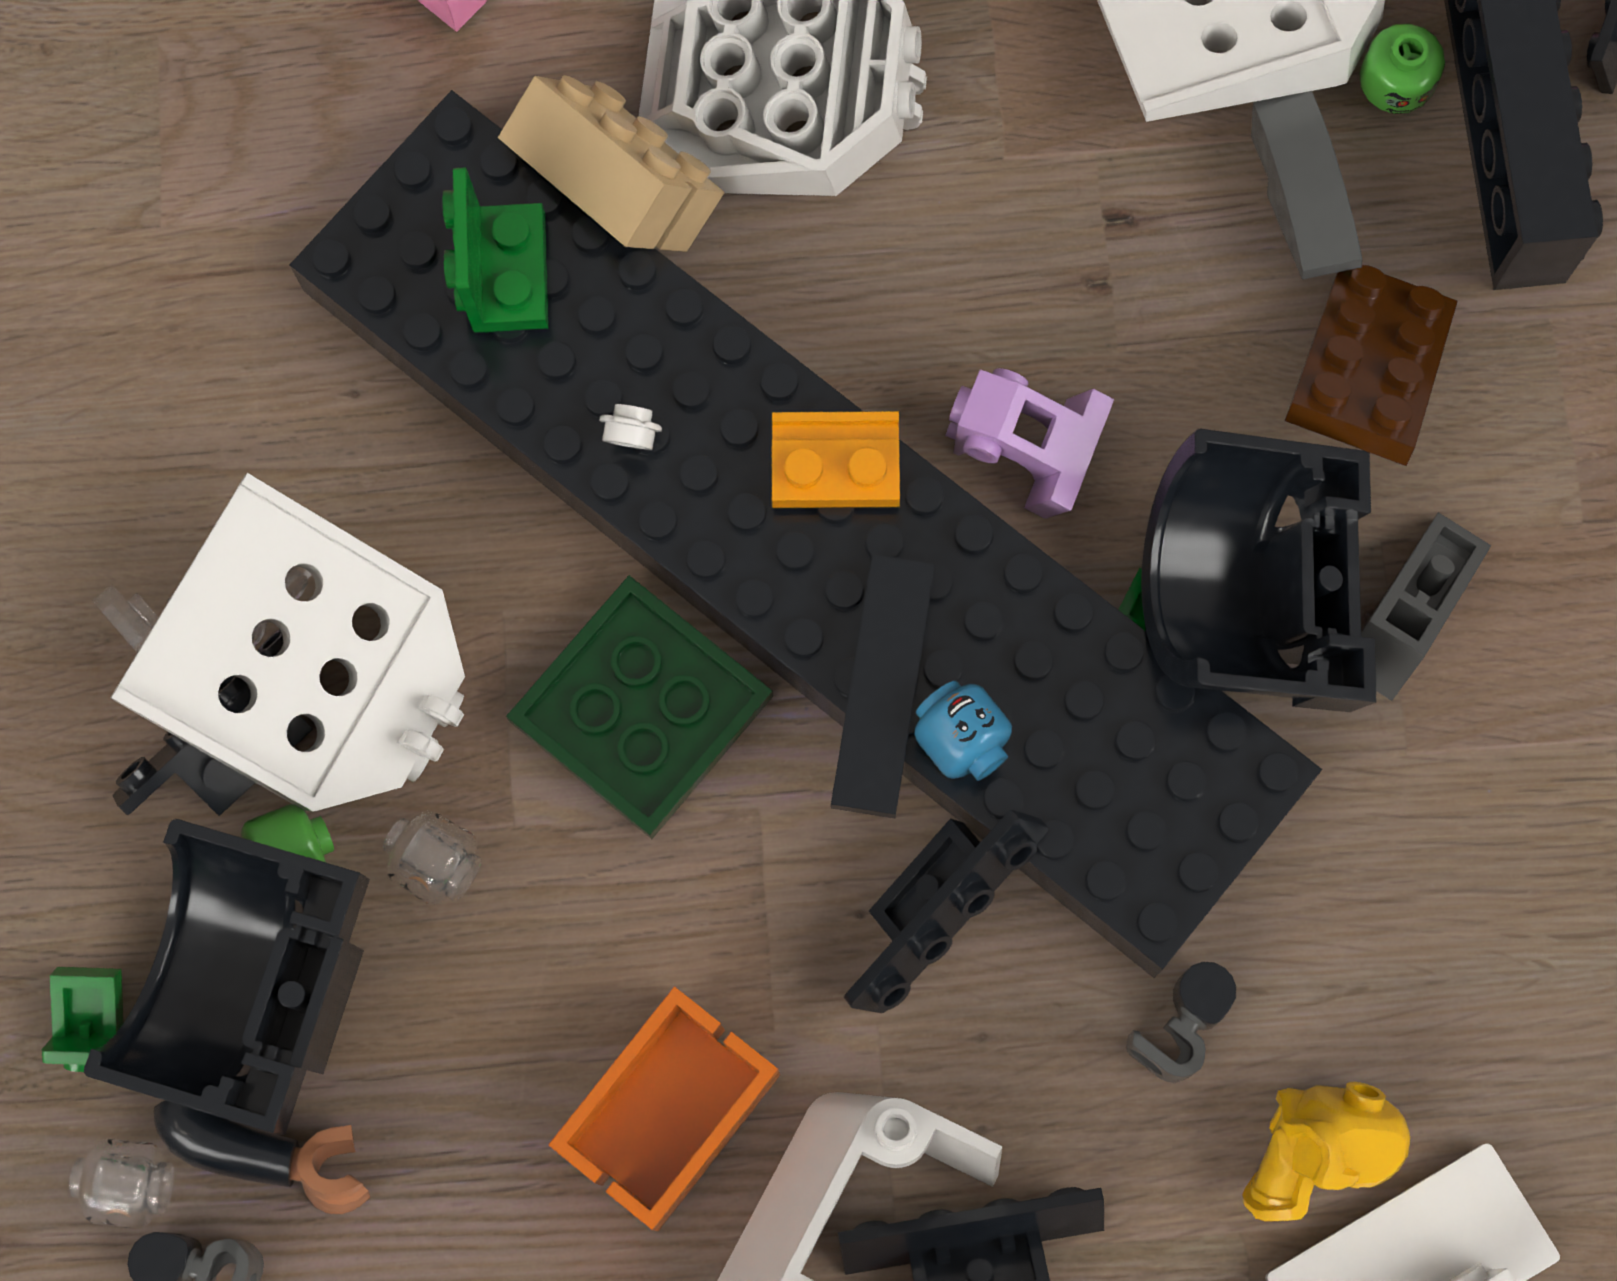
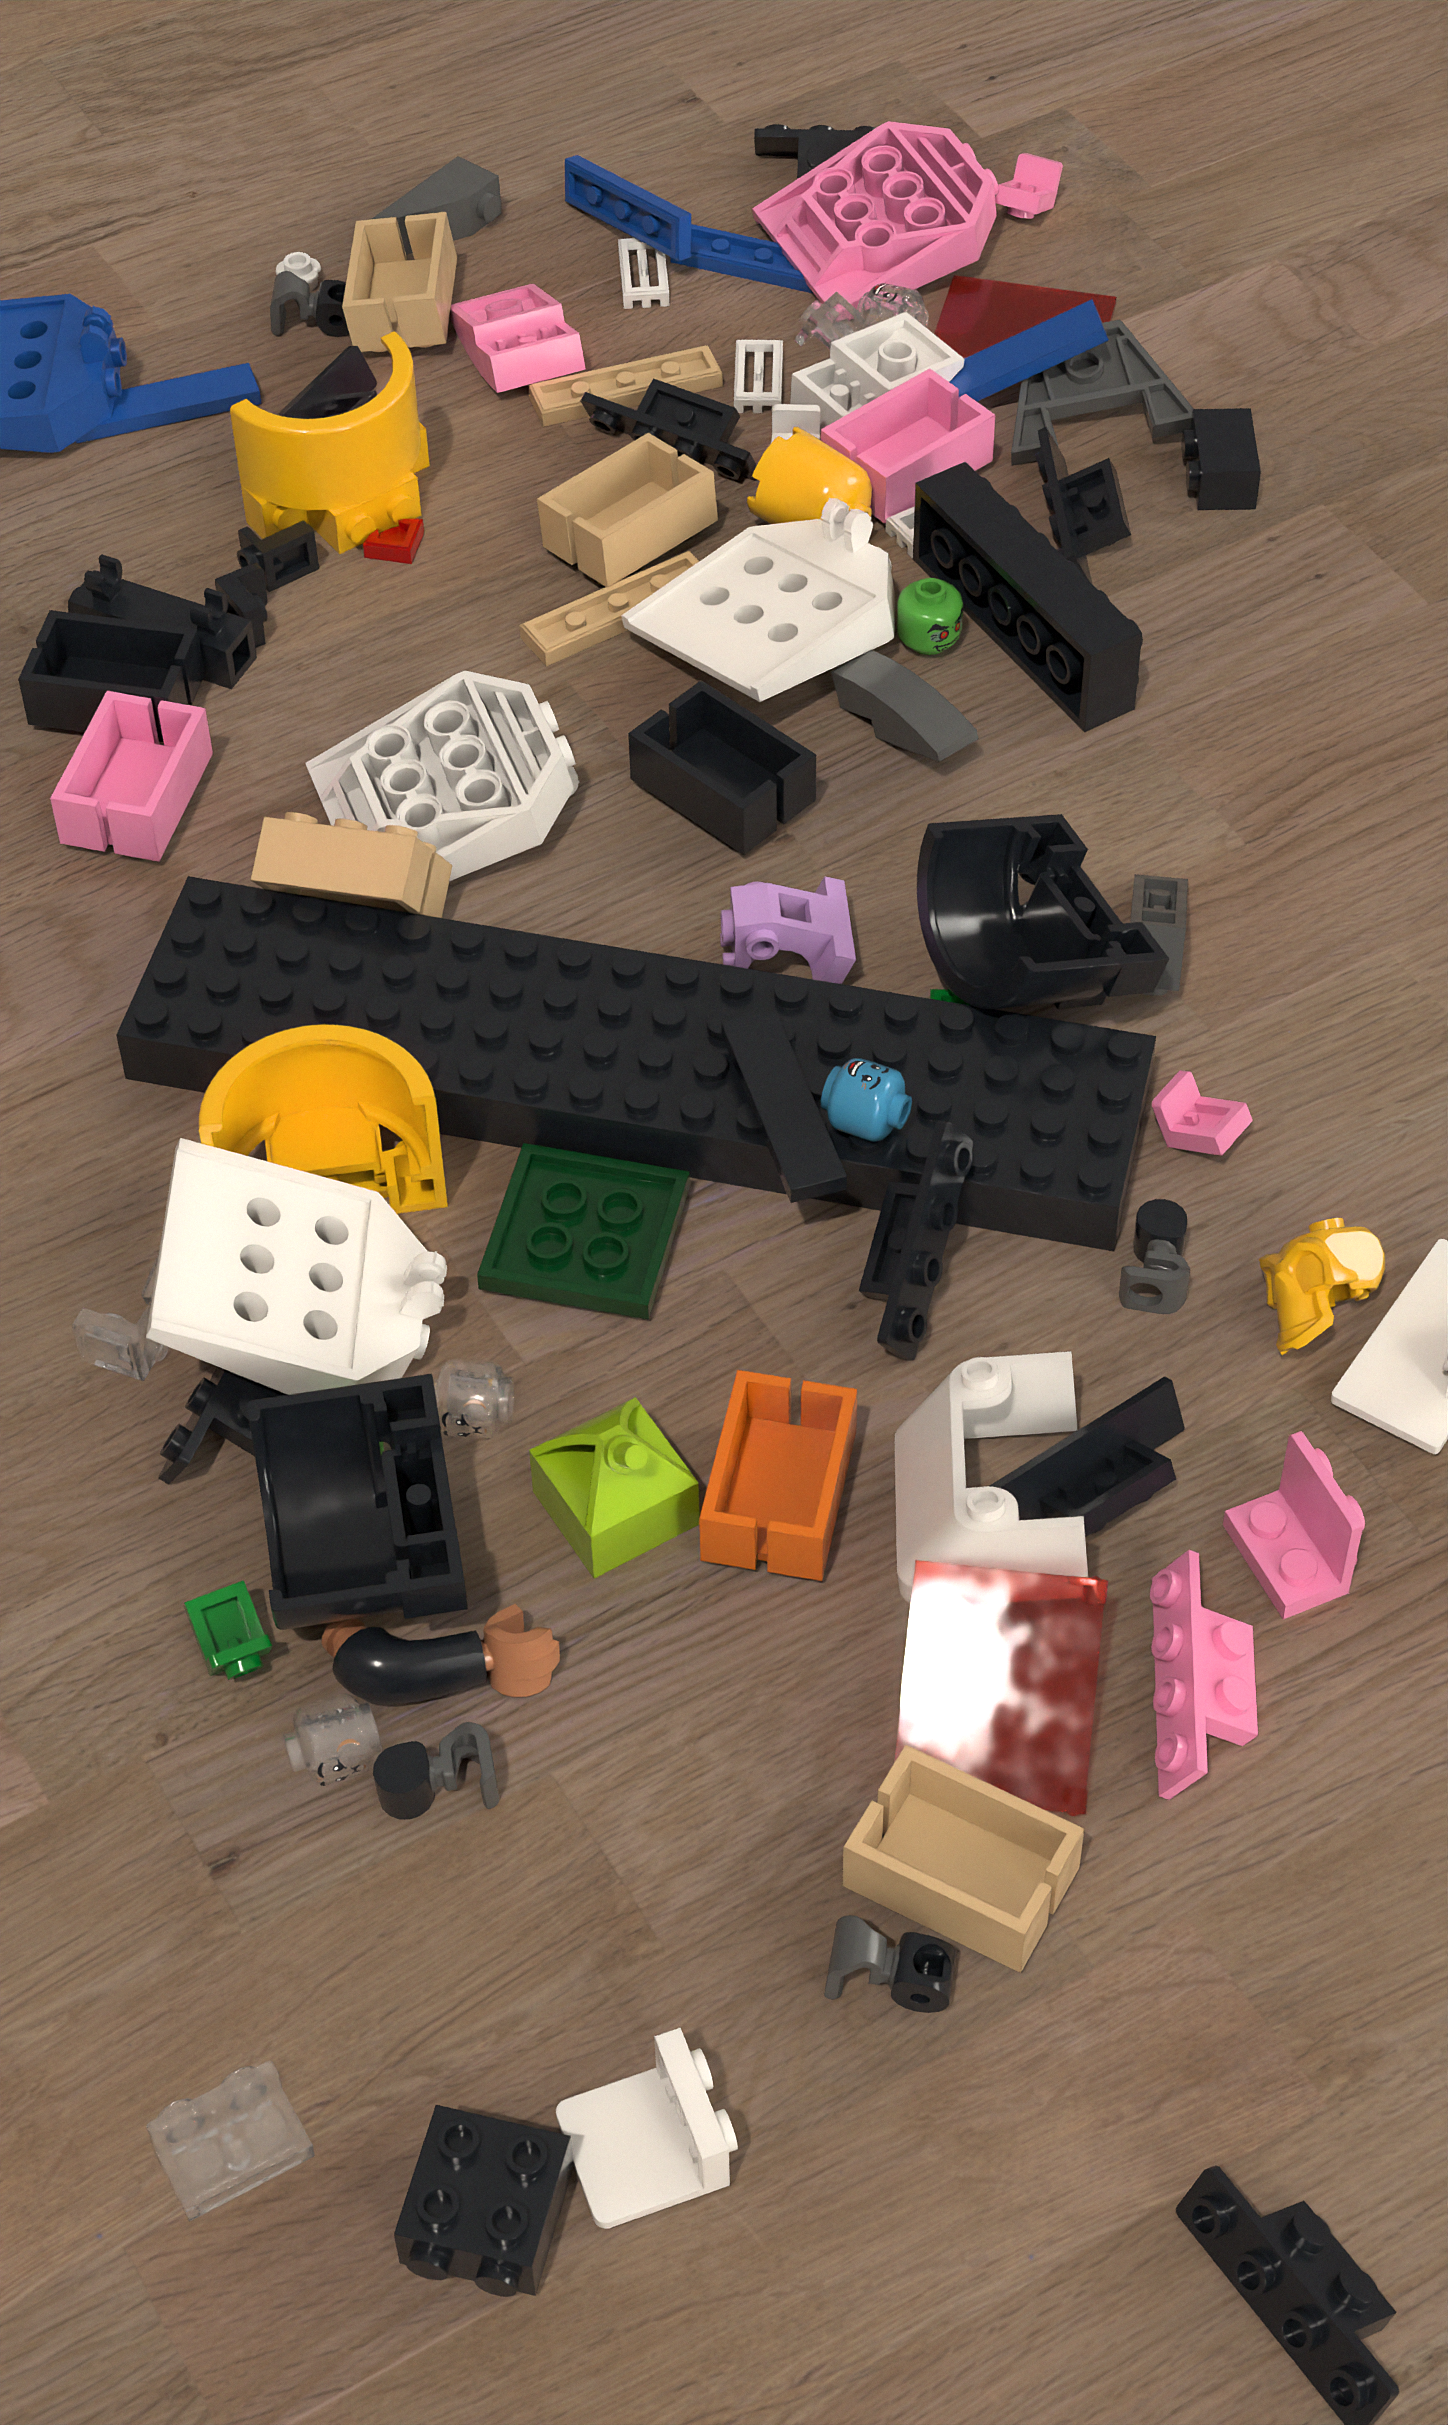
camera: 30 degrees left, 25 degrees down
(431, 482) = (320, 1108): none -> yellow piece
(496, 260) = (299, 947): green bracket -> none
(509, 1035) = (615, 1487): none -> lime piece
(630, 427) = (475, 1016): white plate -> none
(835, 459) = (653, 980): light orange plate -> none
(1069, 183) = (723, 767): none -> black piece
(1322, 873) = (1198, 1121): none -> bright pink bracket
(1373, 363) = (1026, 778): reddish brown plate -> none

